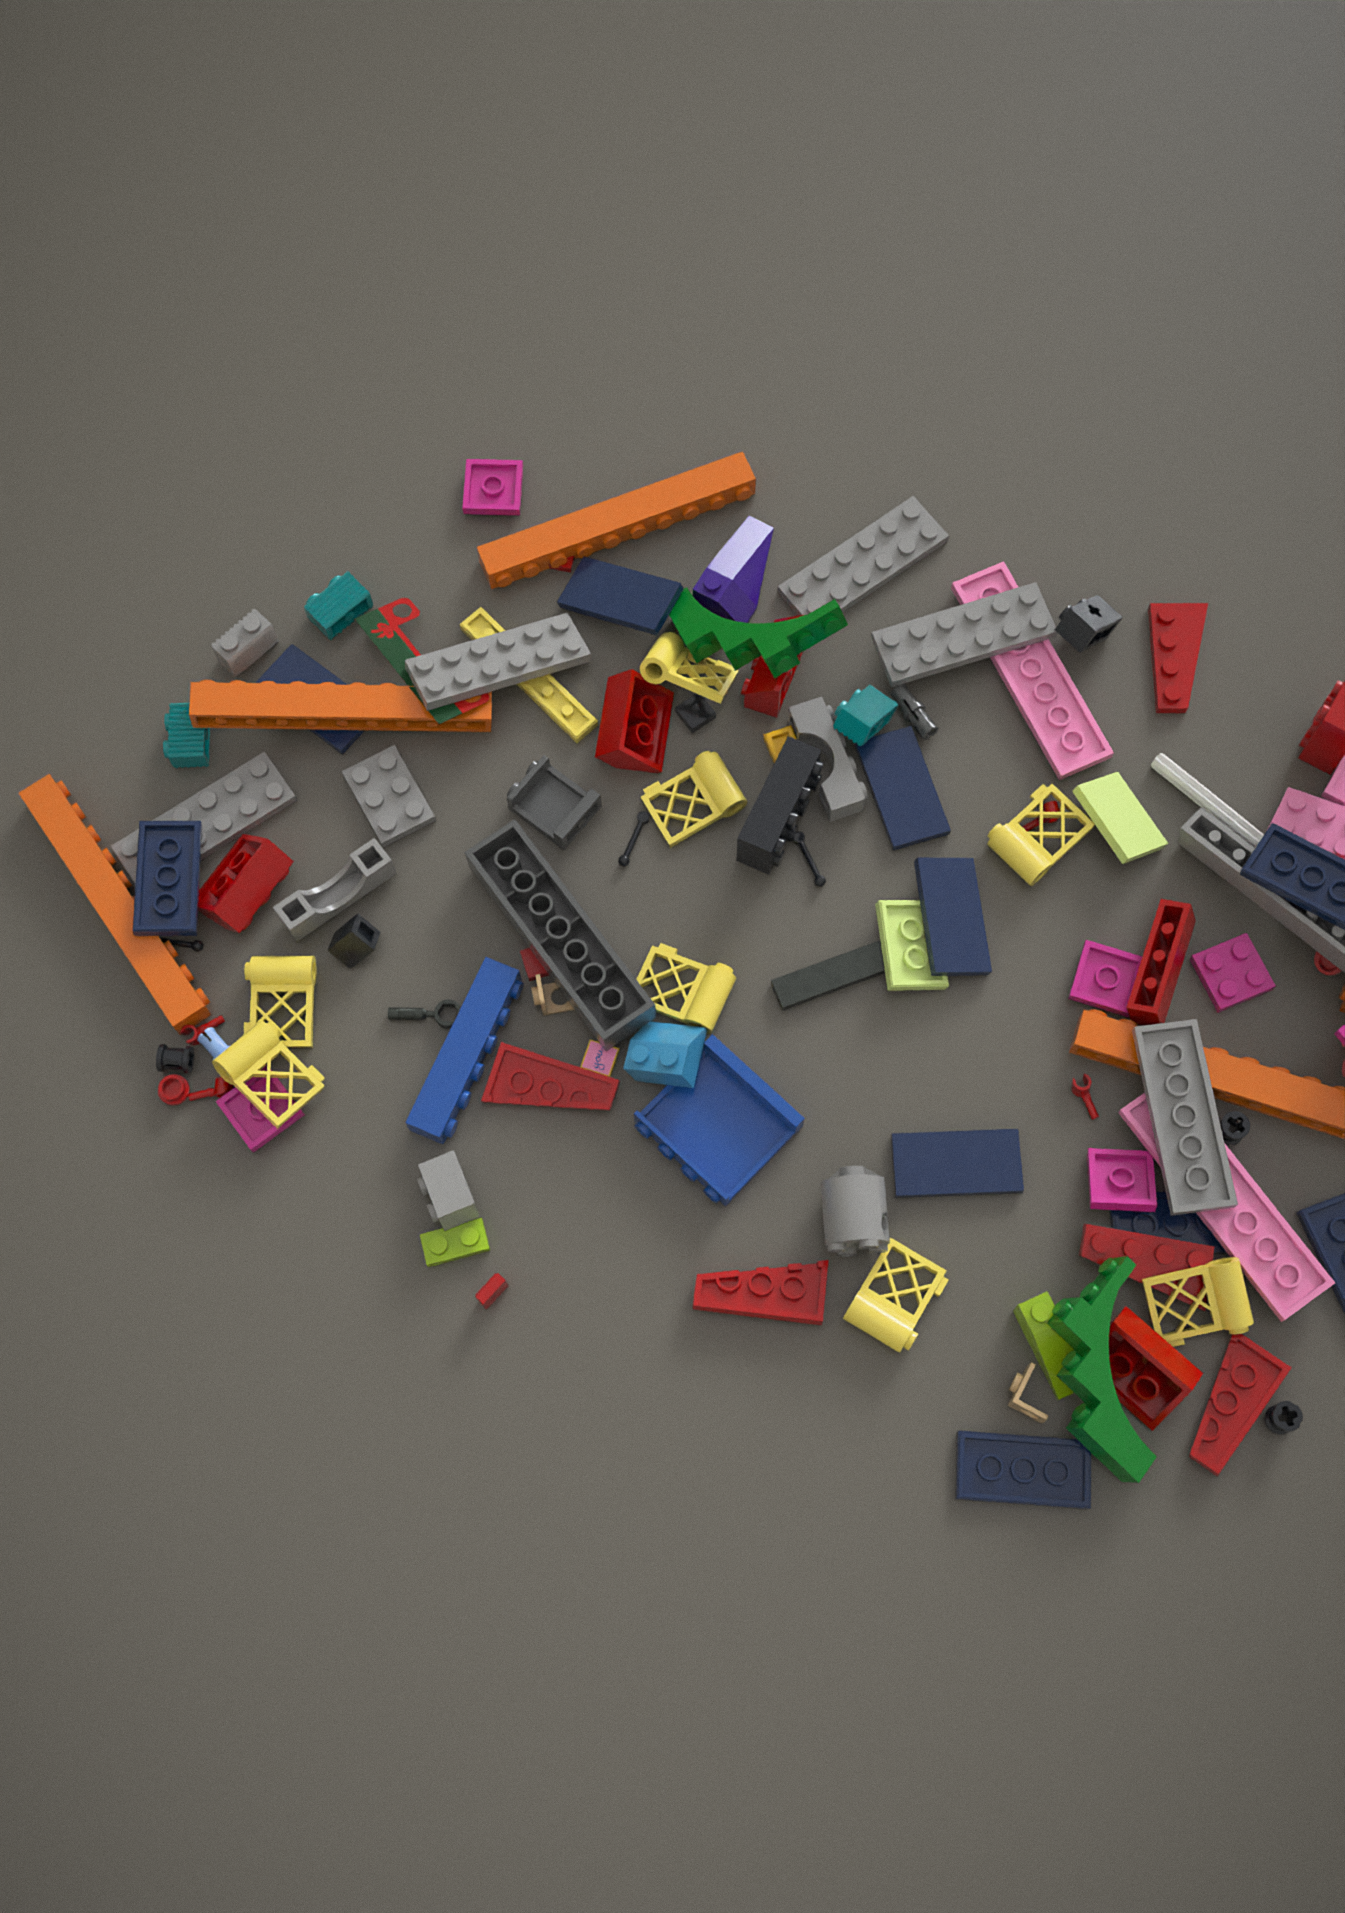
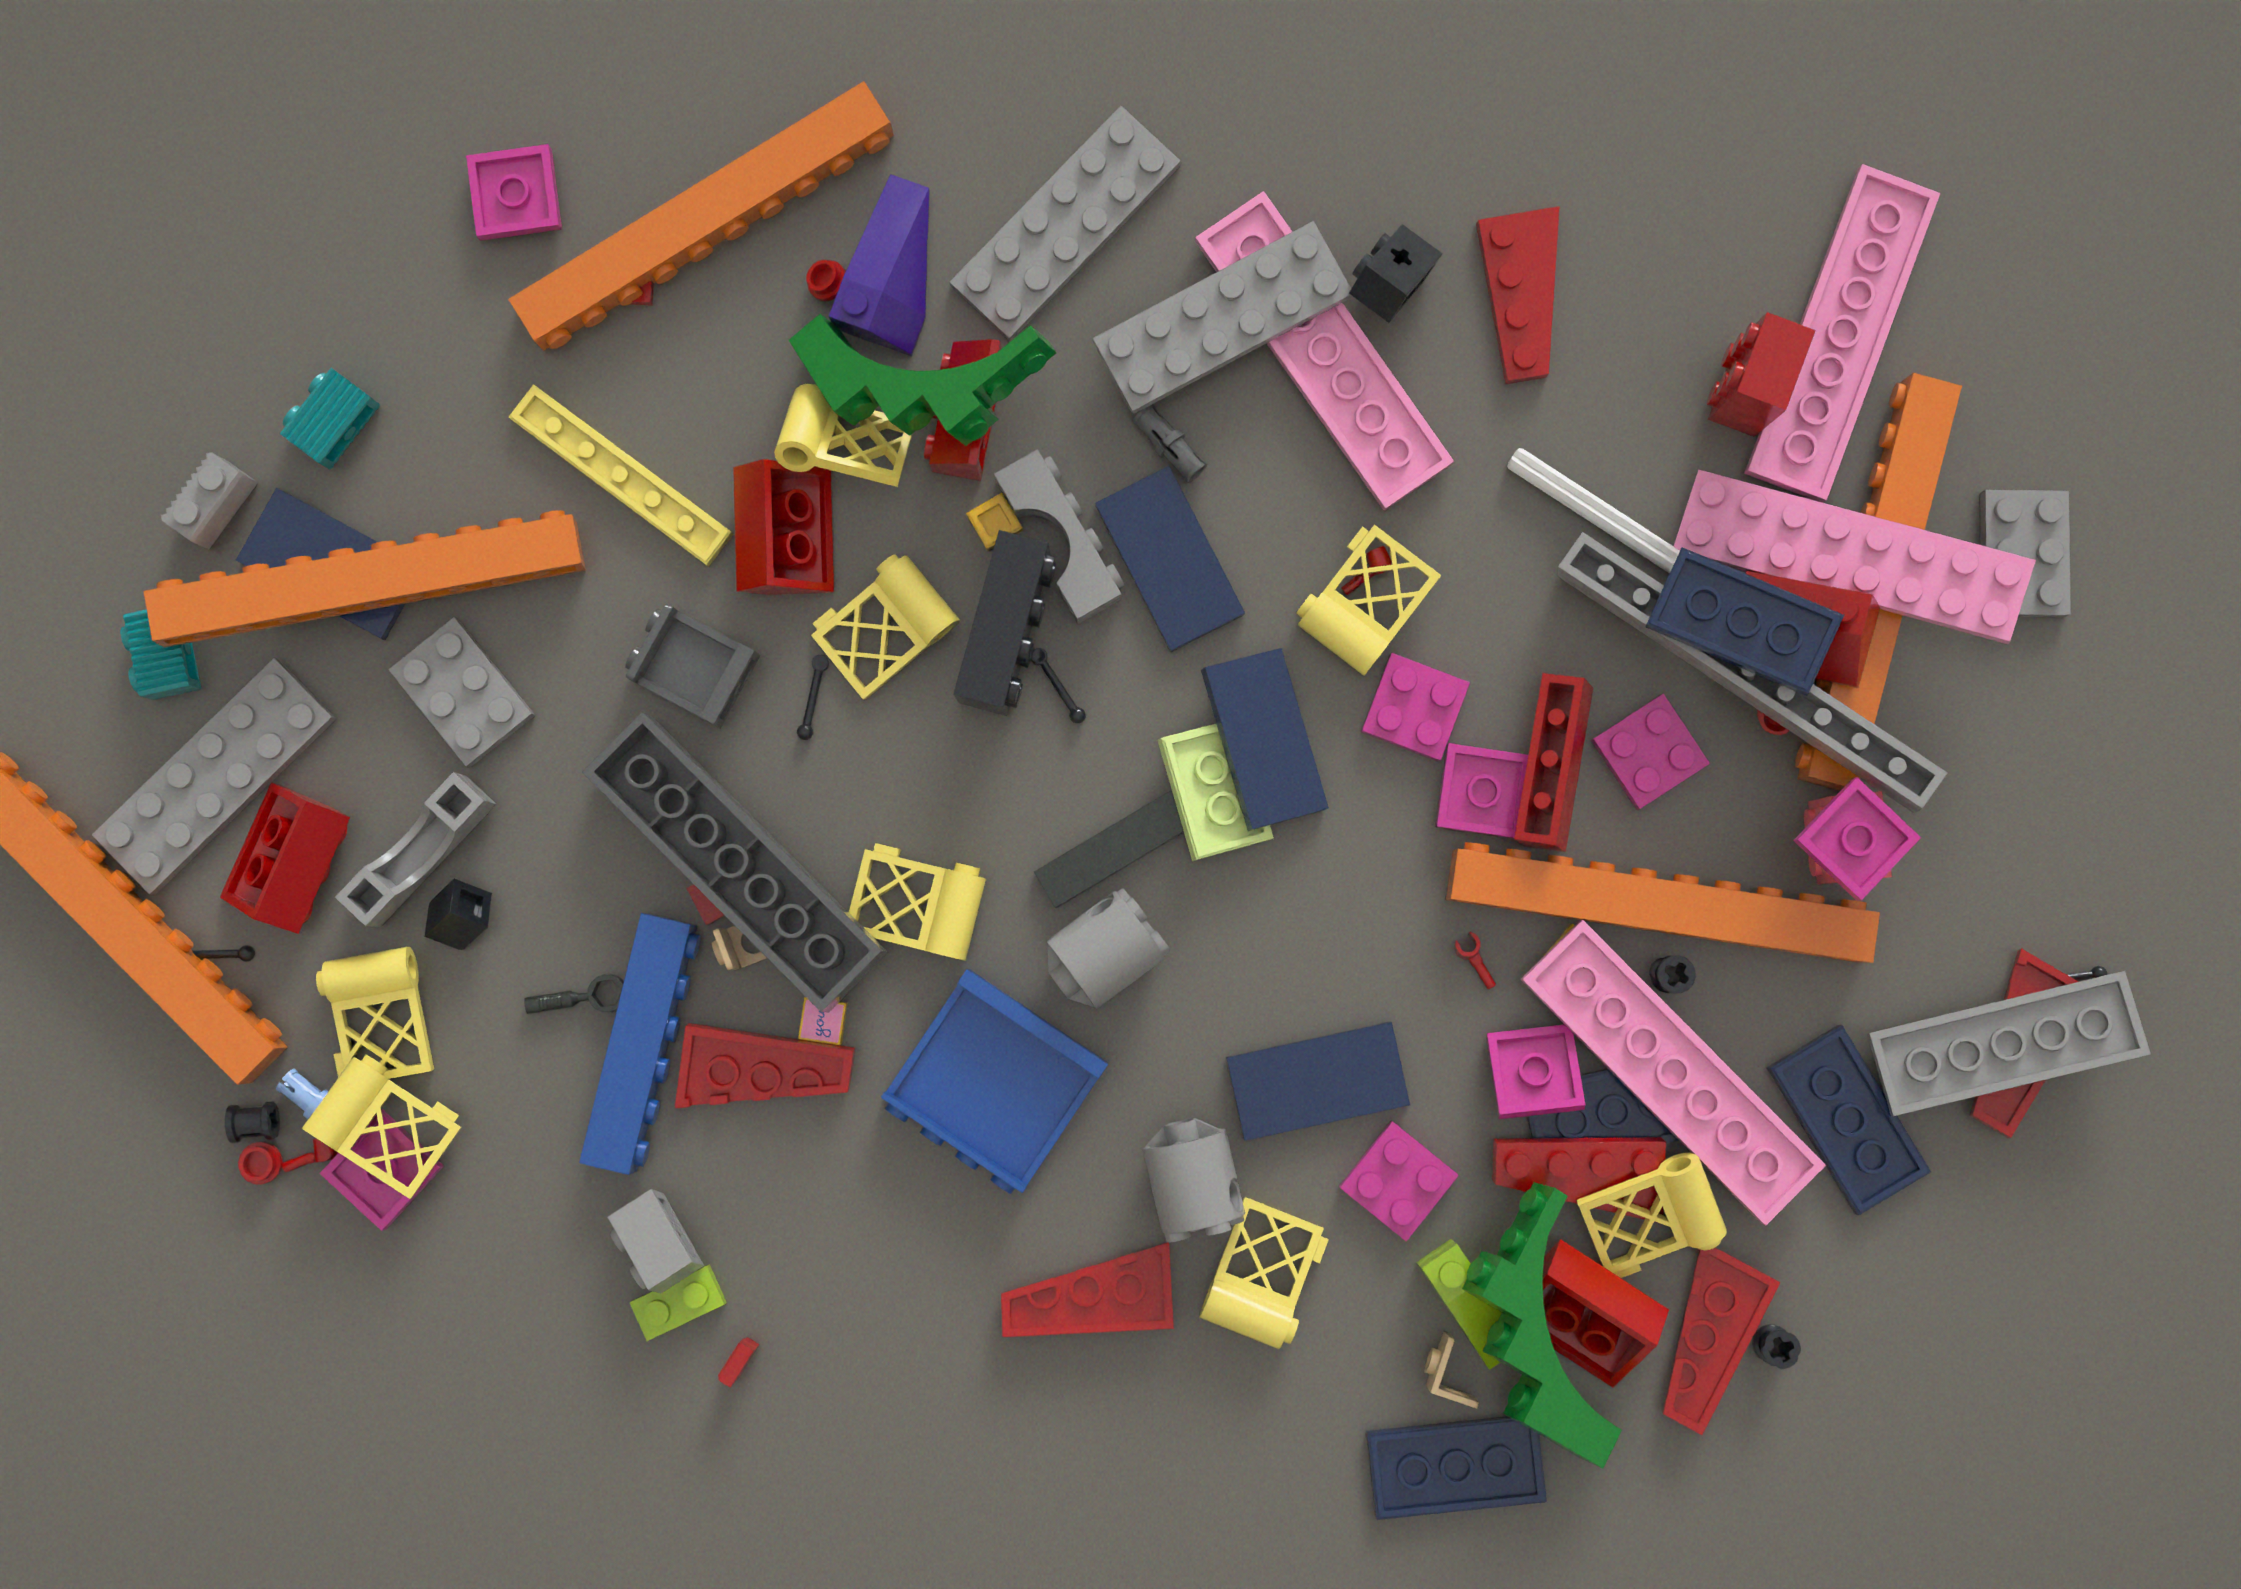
camera: 10 degrees left, 15 degrees up
(167, 878) = (180, 875): dark blue tile -> none
(187, 1029) = (276, 1075): red hand -> none
(383, 630) = (459, 505): dark green piece -> none
(497, 661) = (572, 471): light grey plate -> none
(620, 595) = (728, 338): dark blue tile -> none
(665, 1054) = (909, 1001): dark azure slope -> none
(691, 571) = (825, 279): none -> red plate
(695, 712) = (865, 497): black tile -> none
(815, 1037) = (1104, 950): none -> light grey cylinder
(864, 714) = (1101, 466): teal brick -> none
(1007, 1246) = (1398, 1180): none -> dark pink plate
(1064, 914) = (1415, 707): none -> dark pink plate
(1120, 817) = (1473, 556): yellowish green tile -> none
(1184, 1117) = (1607, 980): light grey plate -> none

